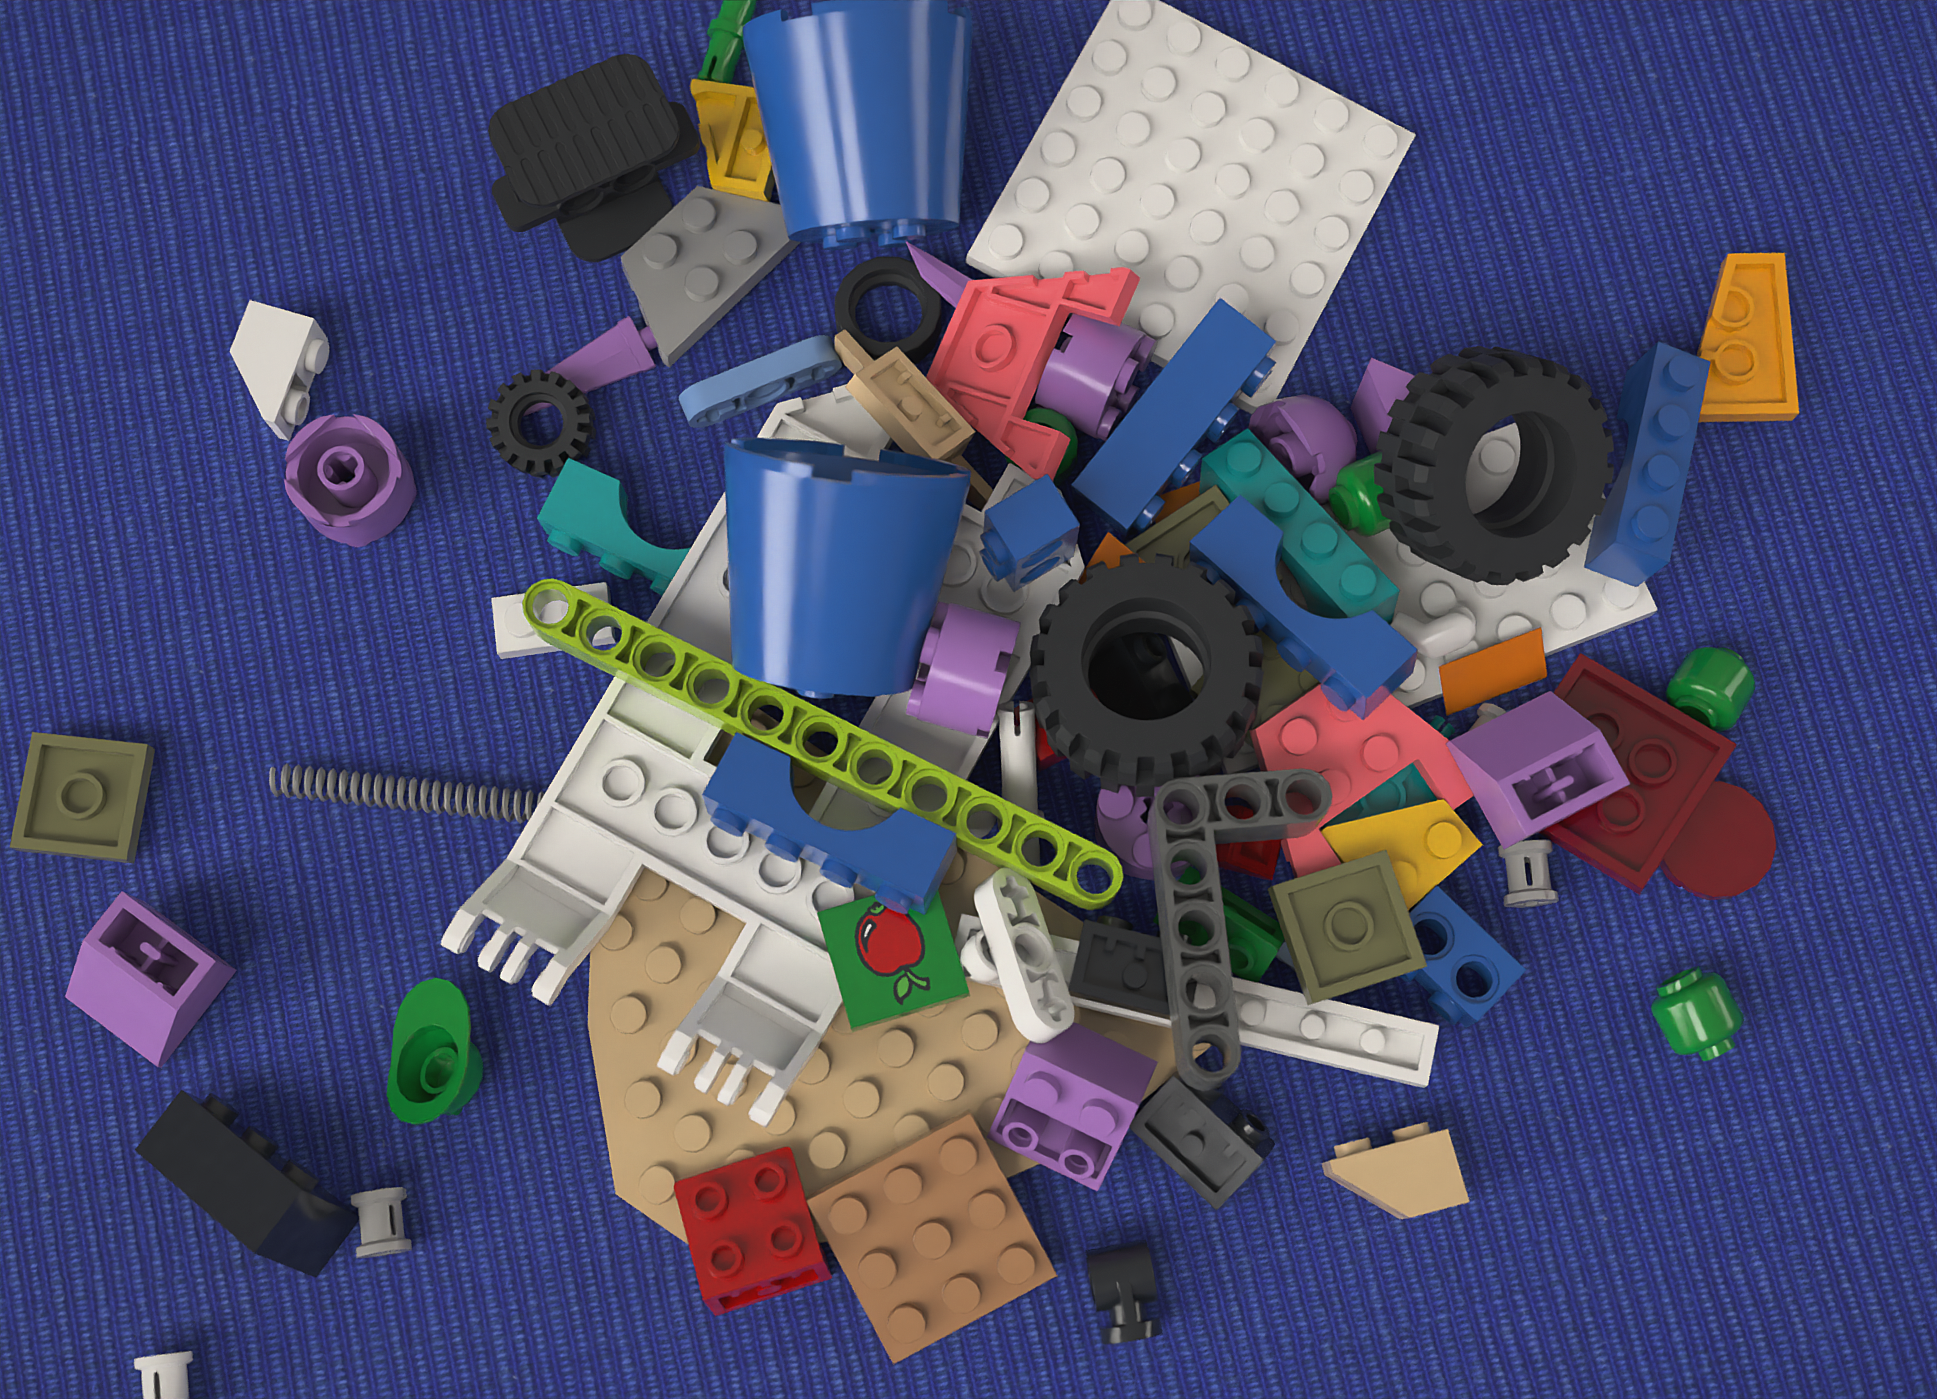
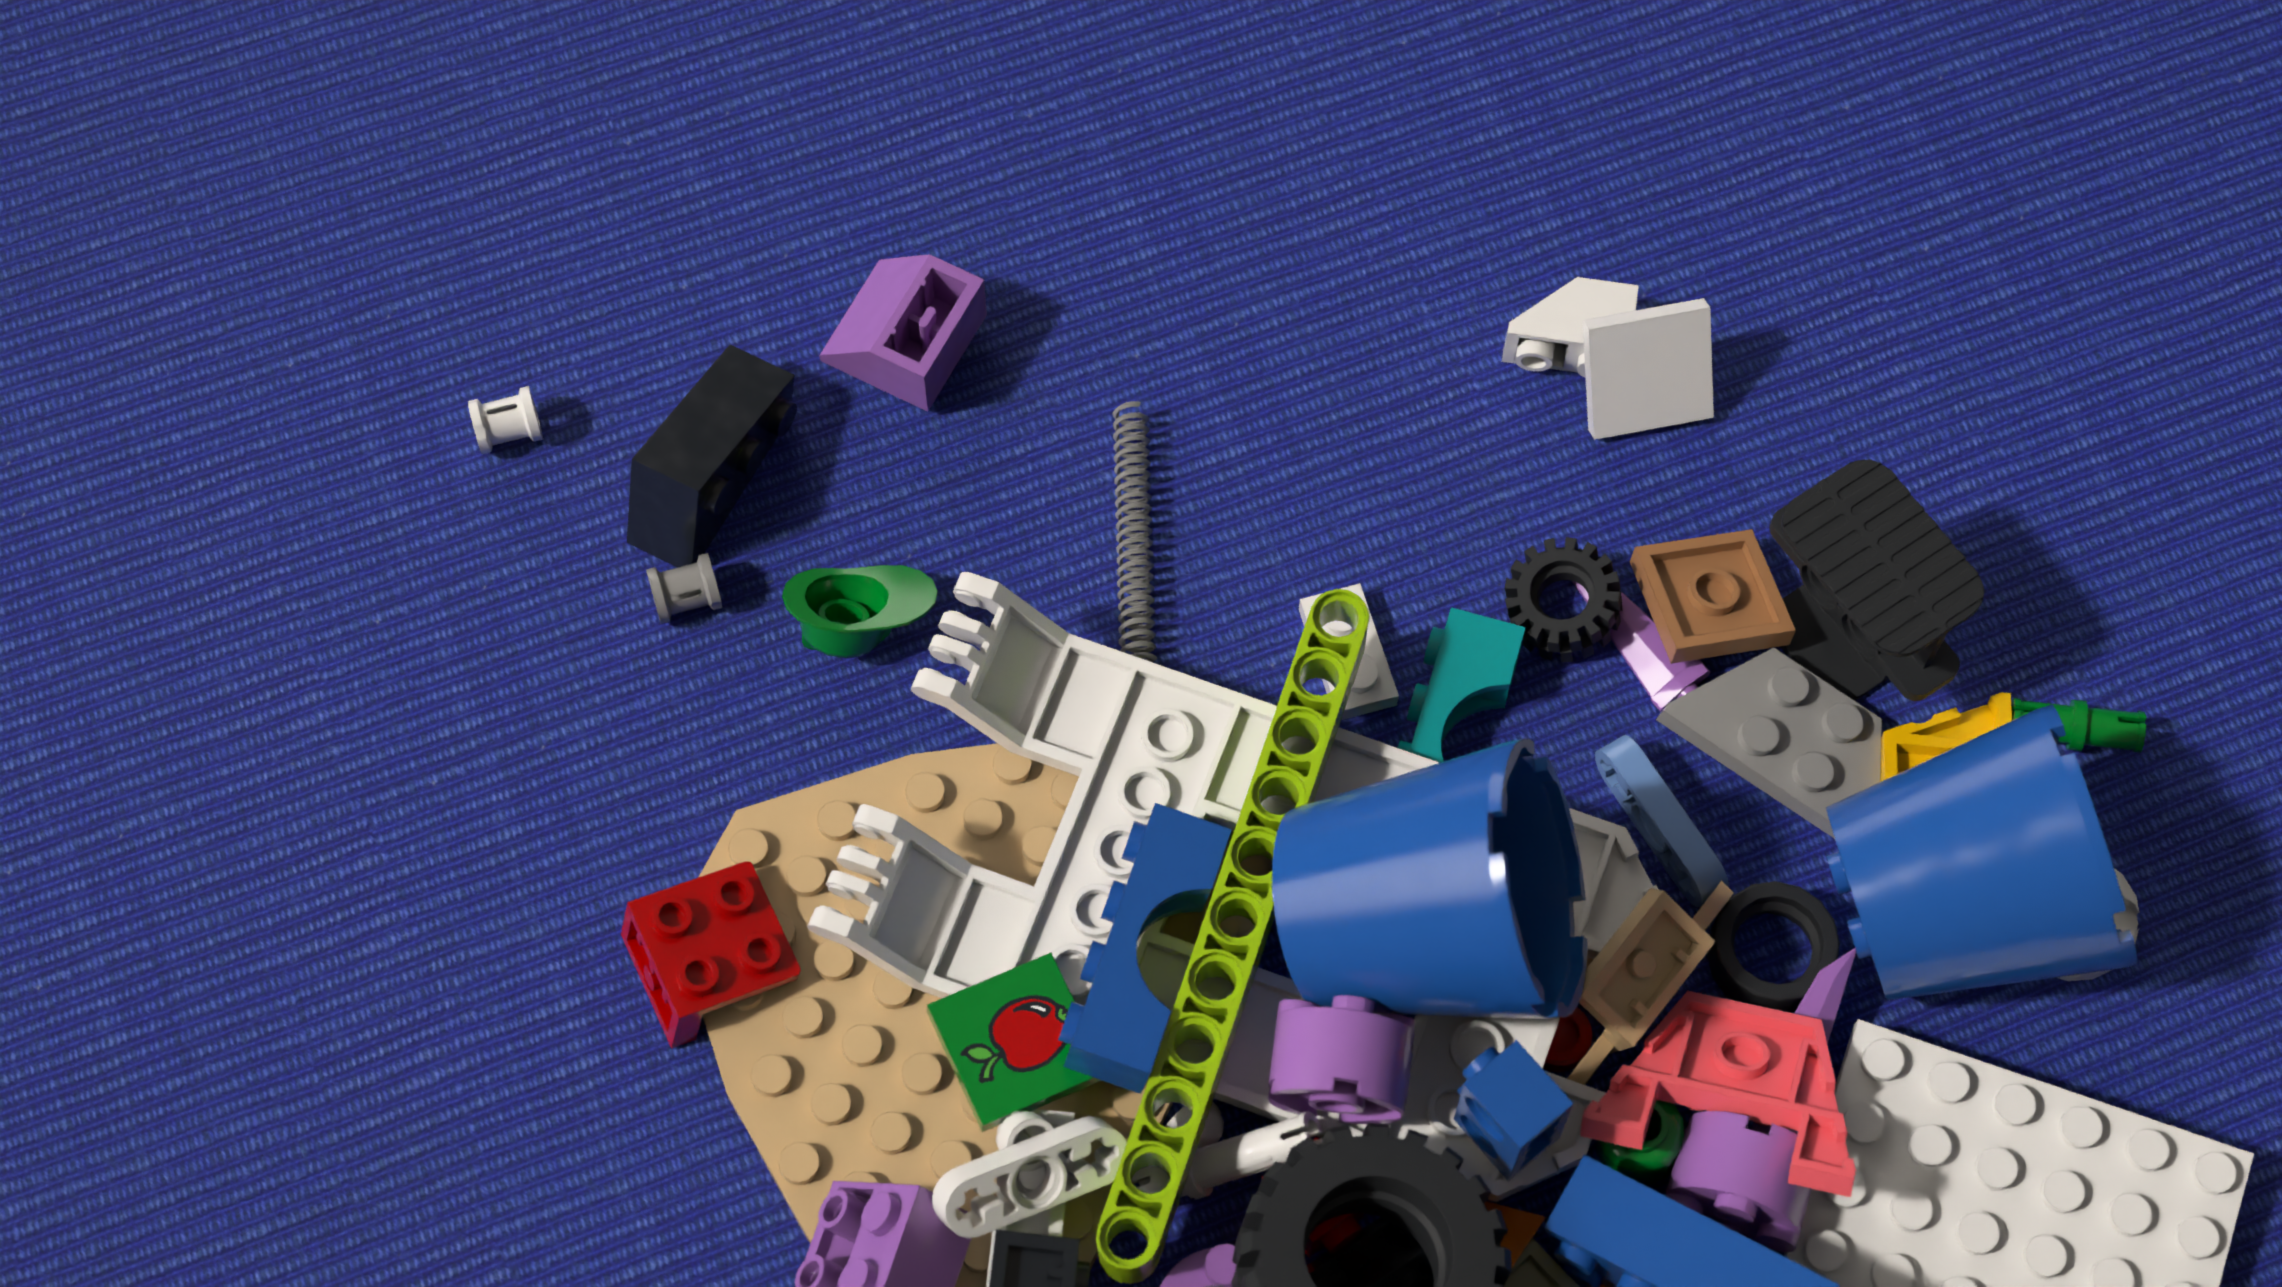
camera: 80 degrees right, 10 degrees down
(82, 797) = (1083, 237): olive plate -> none
(334, 307) = (1648, 368): none -> white tile
(367, 505) = (1461, 418): medium lavender brick -> none
(561, 299) = (1712, 596): none -> medium nougat plate
(931, 1236) = (721, 1139): medium nougat plate -> none

